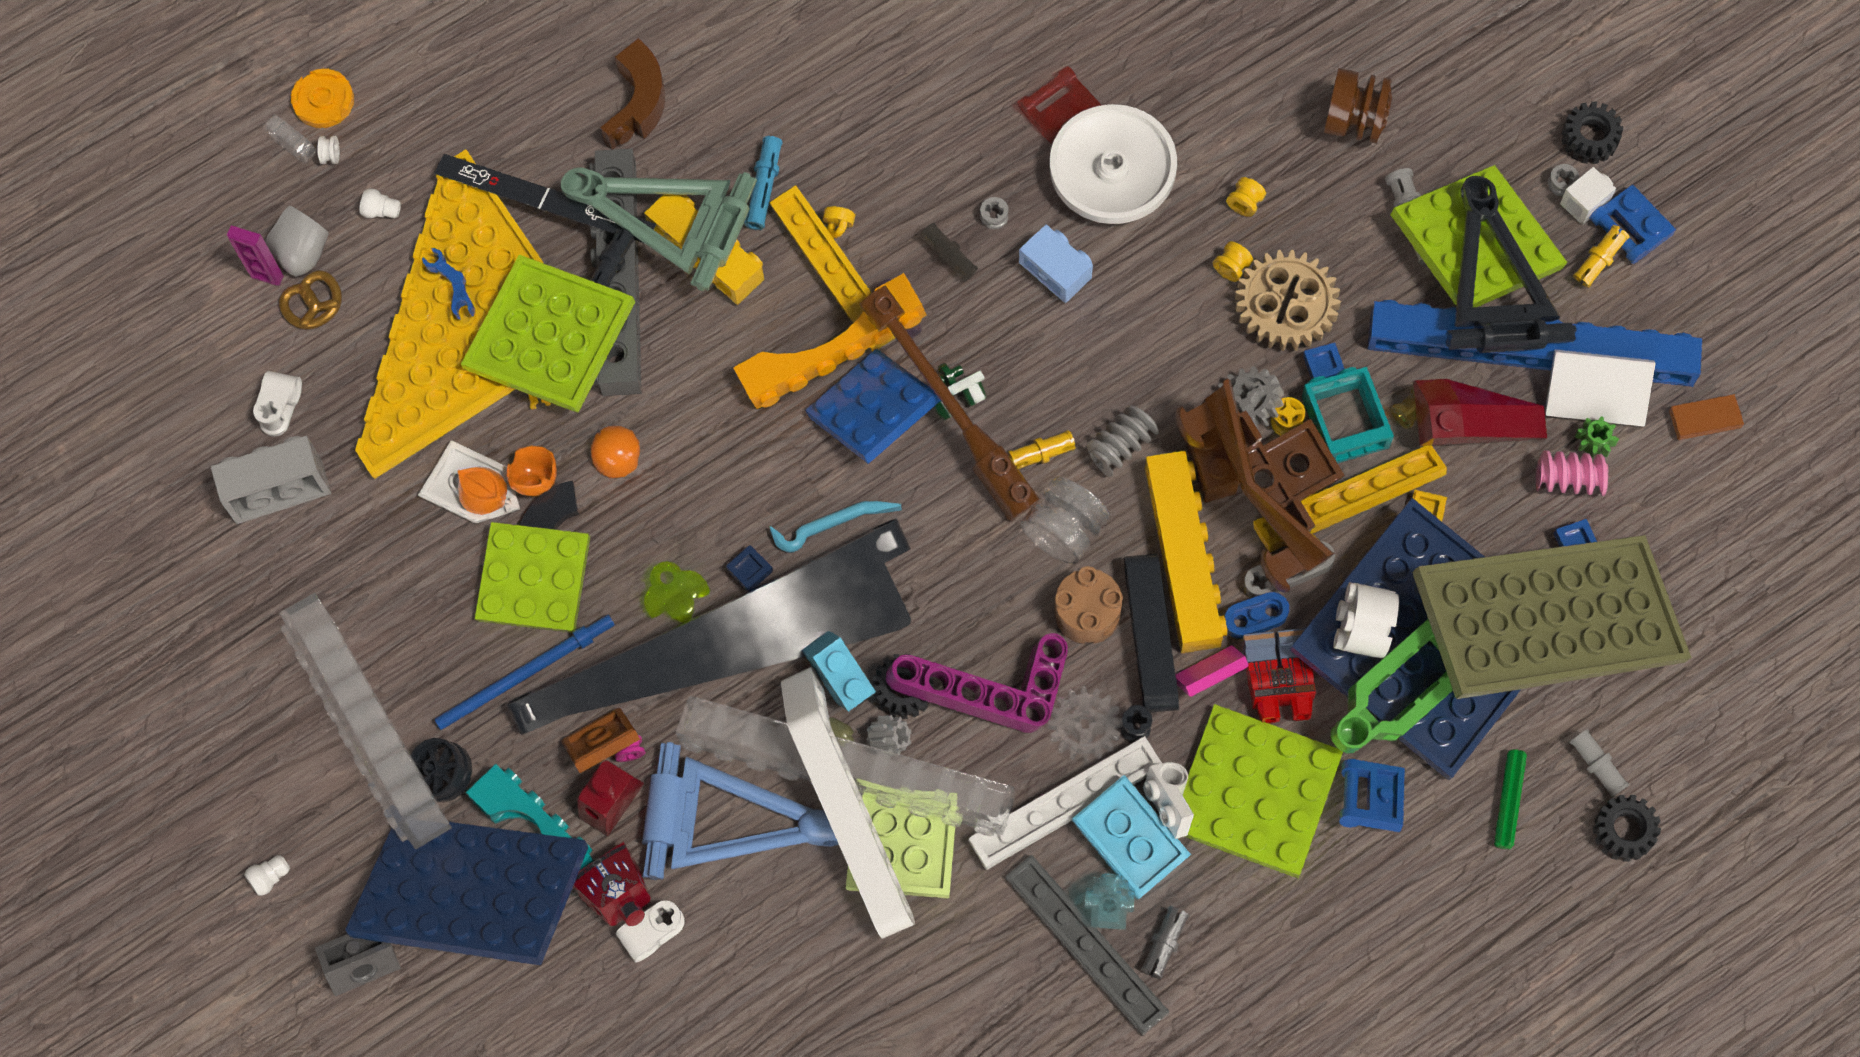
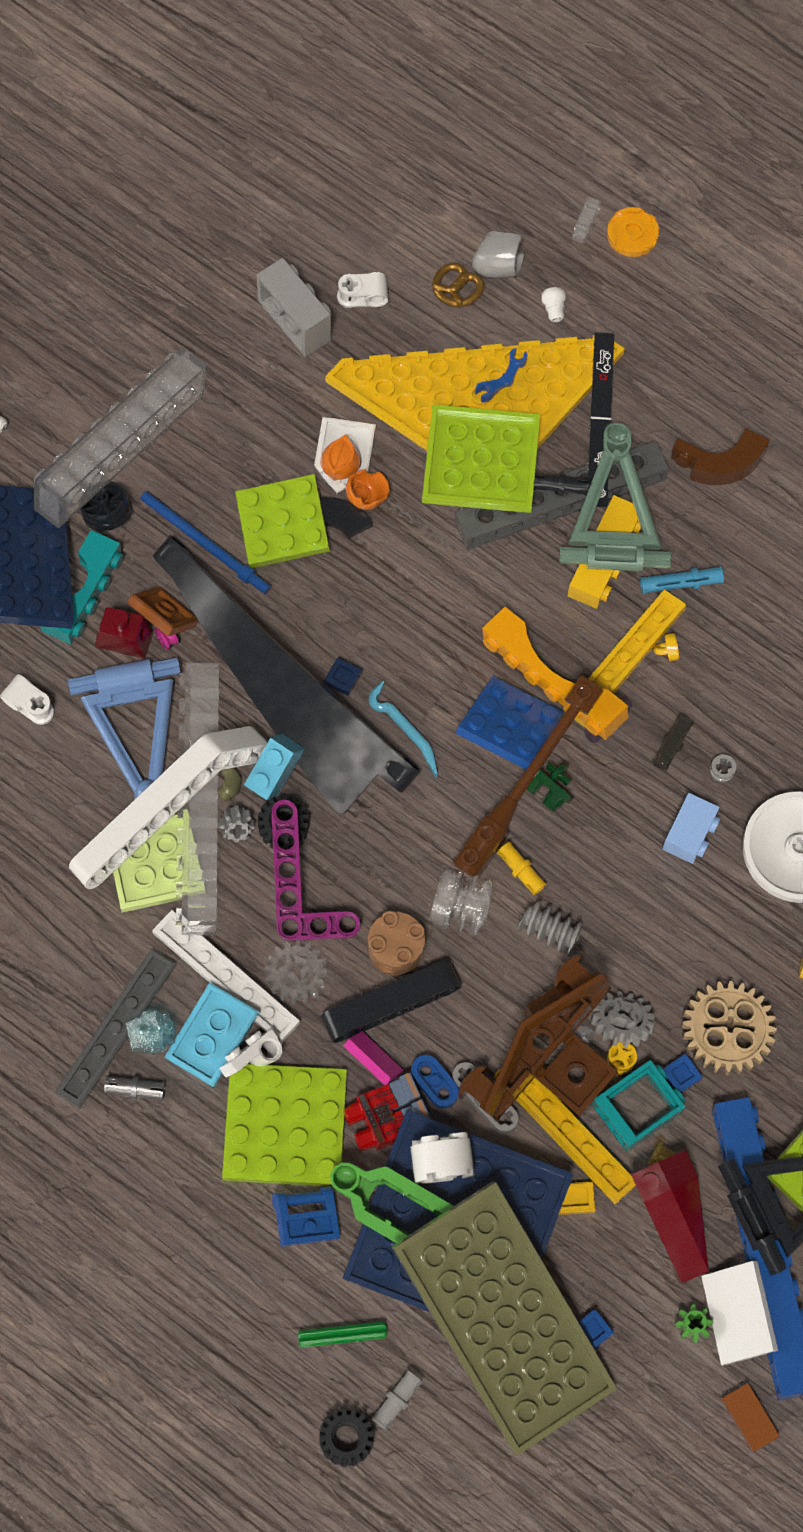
camera: 65 degrees right, 0 degrees up
(255, 255) = (469, 227): magenta tile -> none
(328, 150) = (587, 251): white bush -> none
(614, 887) = (51, 661): dark red torso -> none
(615, 451) = (408, 546): orange hair -> none
(676, 596) = (302, 631): clear neon green plate -> none
(1145, 720) = (315, 1007): black bush -> none
(1184, 552) = (469, 1007): yellow brick -> none
(1232, 261) = (748, 972): yellow wheel -> none
(1572, 472) = (651, 1311): bright pink piece -> none

